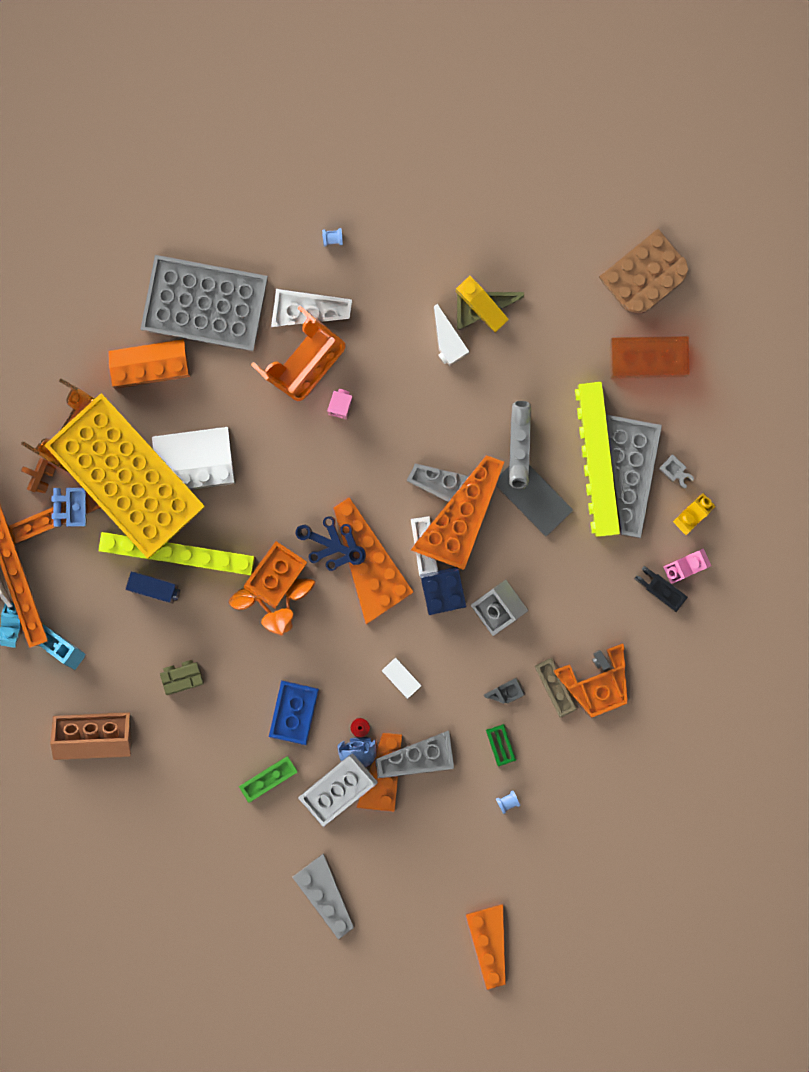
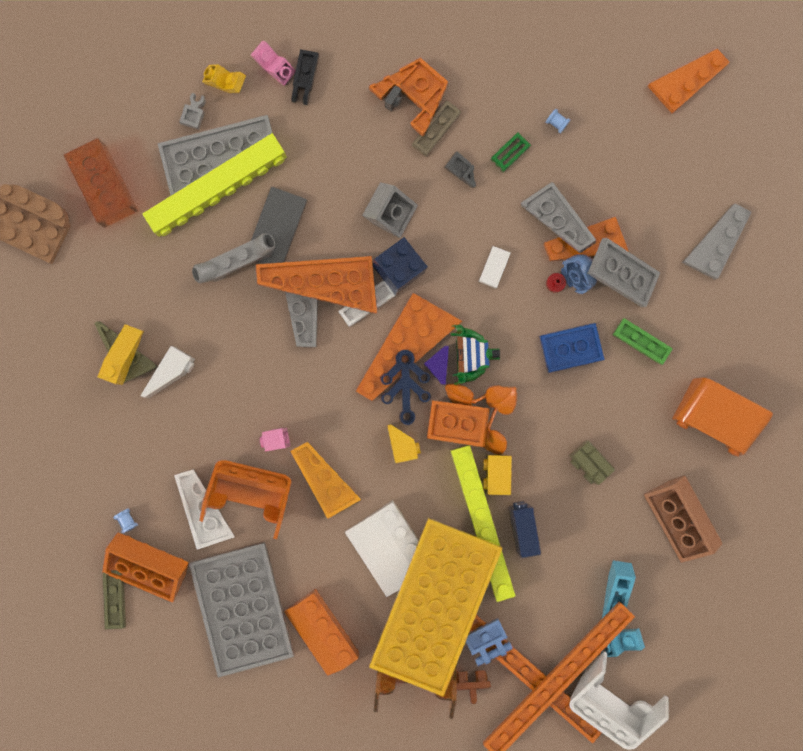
camera: 110 degrees left, 0 degrees up
(166, 815) = (722, 415): none -> orange windscreen
(211, 588) = (497, 474): none -> yellow brick
(268, 194) = (114, 602): none -> olive tile
(279, 430) = (324, 482): none -> light orange wing
(280, 516) = (403, 446): none -> yellow slope
(282, 235) = (145, 566): none -> orange slope
(330, 617) = (472, 354): none -> torso
(336, 582) = (438, 365): none -> dark purple slope

